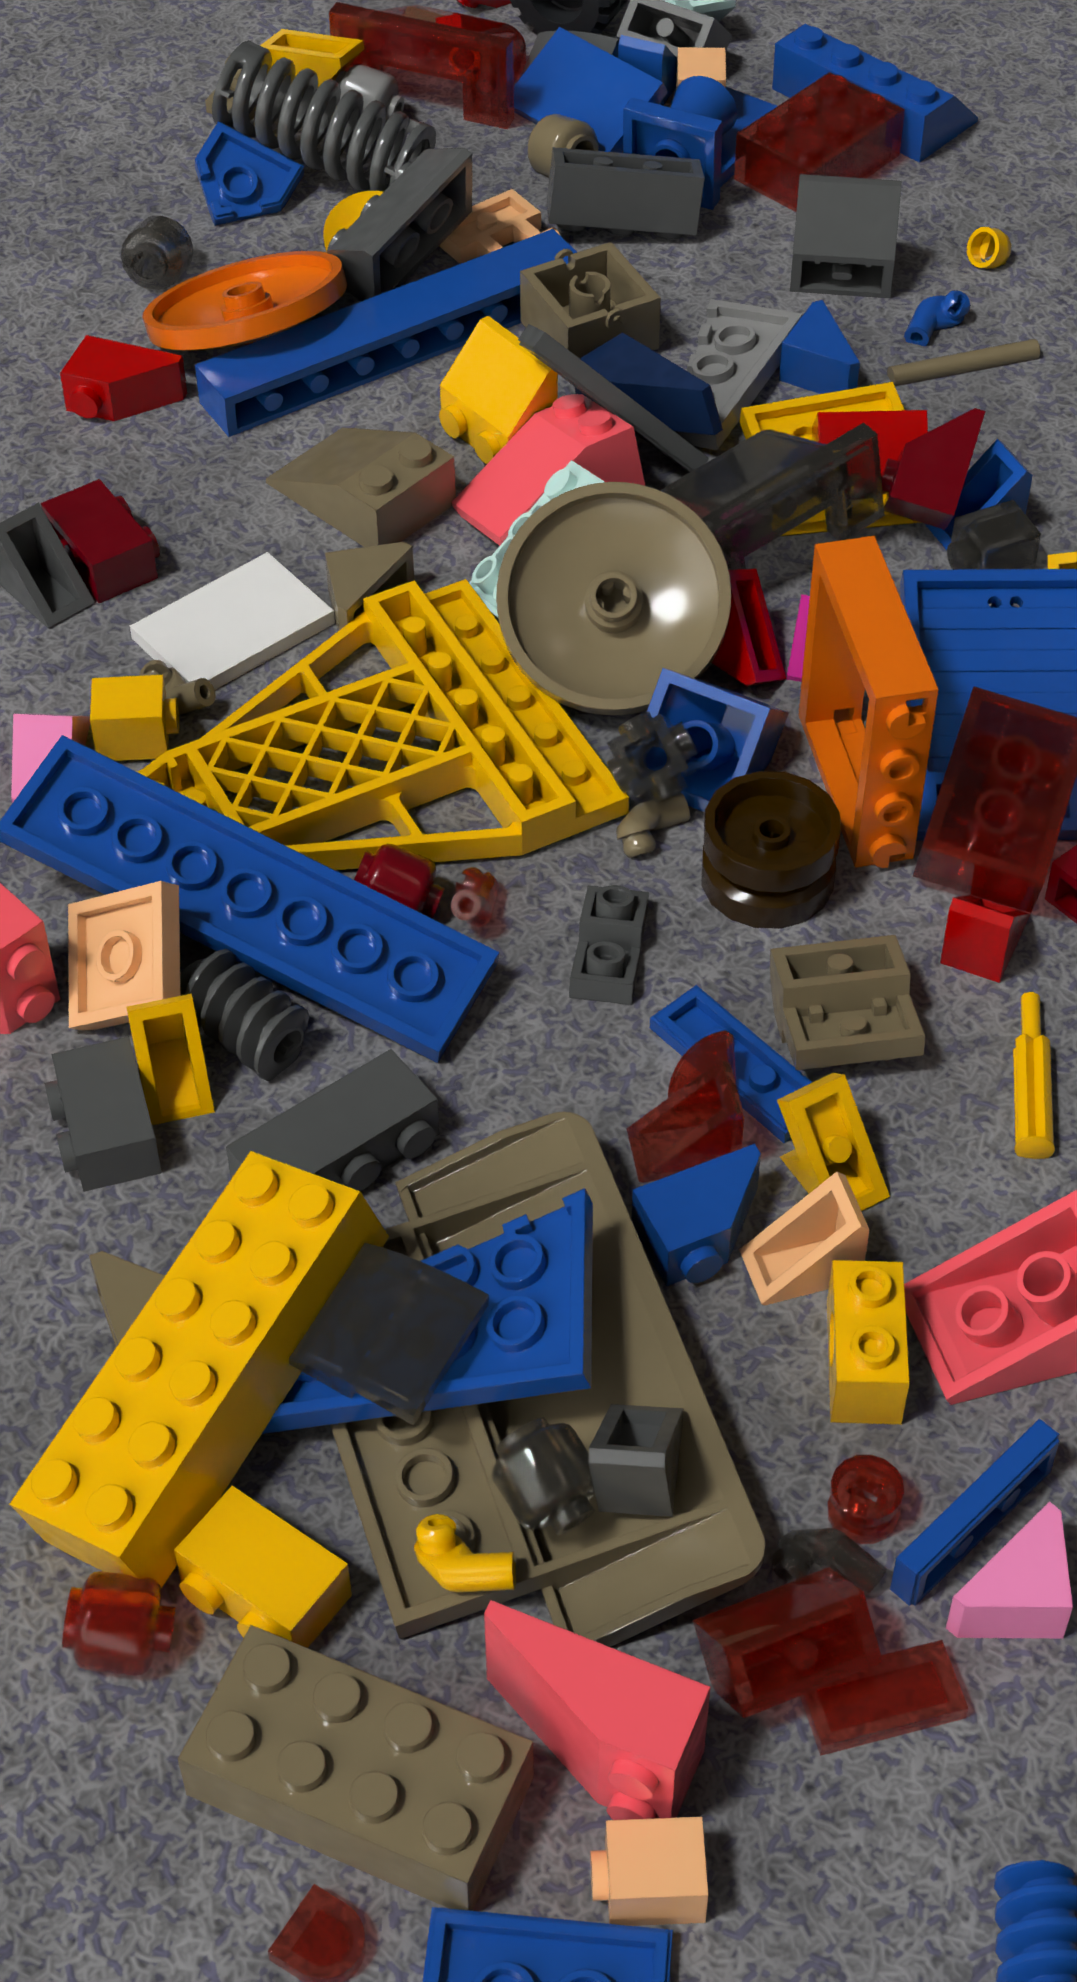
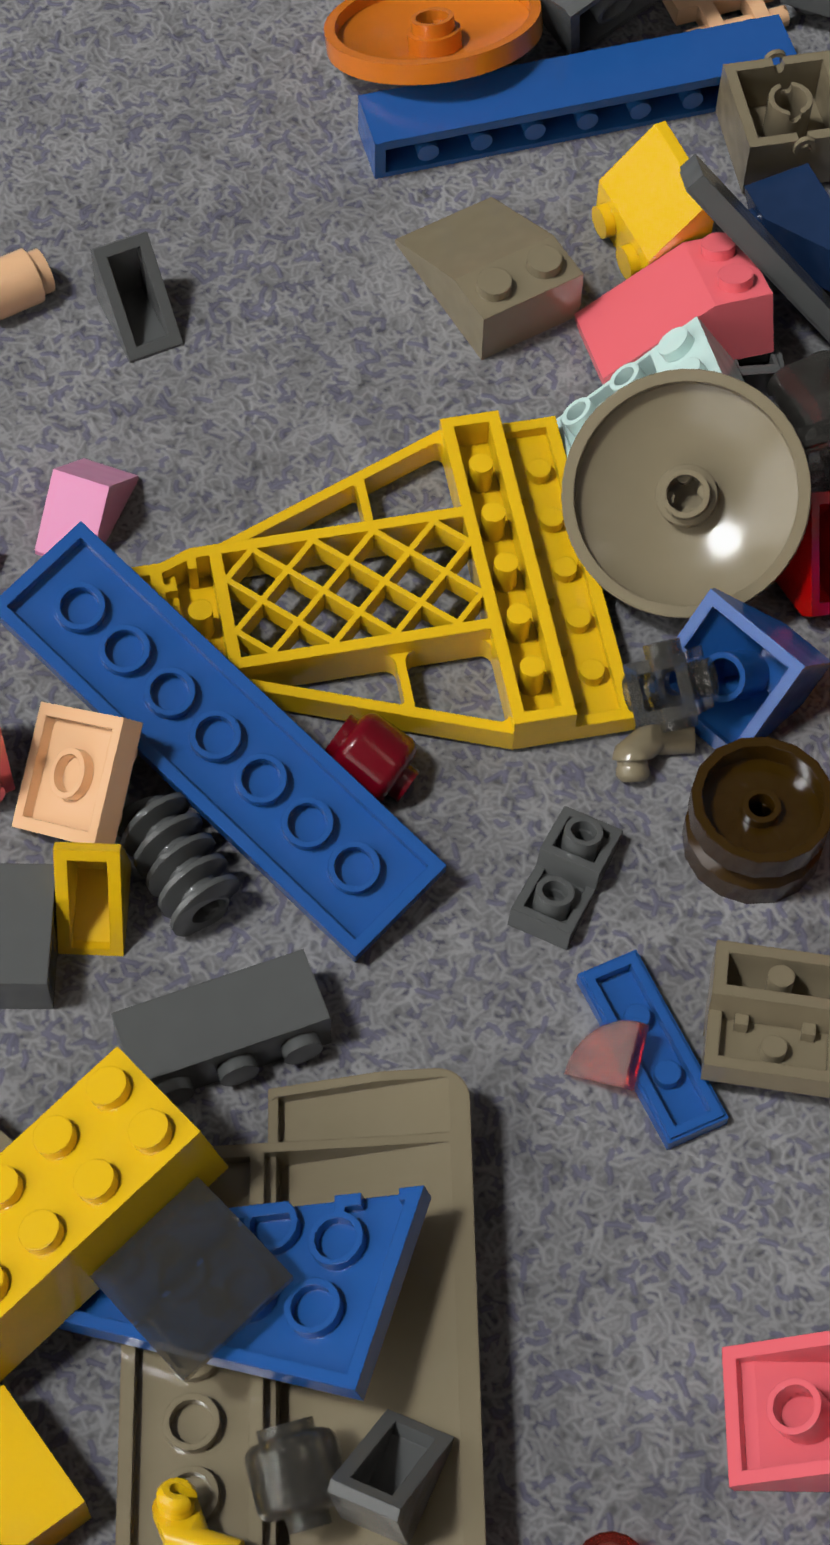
camera: 15 degrees right, 10 degrees up
(103, 540) = (207, 277): dark red brick -> none
(120, 379) = (282, 89): red slope -> none
(132, 717) = (172, 495): yellow brick -> none
(189, 695) = (224, 469): dark tan arm -> none
(234, 623) = (309, 406): white tile -> none
(365, 572) = (455, 388): dark tan slope -> none
(475, 897) = (456, 787): clear red arm -> none
(689, 1126) = (571, 1117): clear red slope -> none
(696, 1215) = (549, 1214): blue slope -> none
(798, 1248) = (645, 1281): light nougat slope -> none
(831, 1139) = (705, 1180): yellow slope -> none
(867, 1342) = (667, 1406): yellow brick -> none

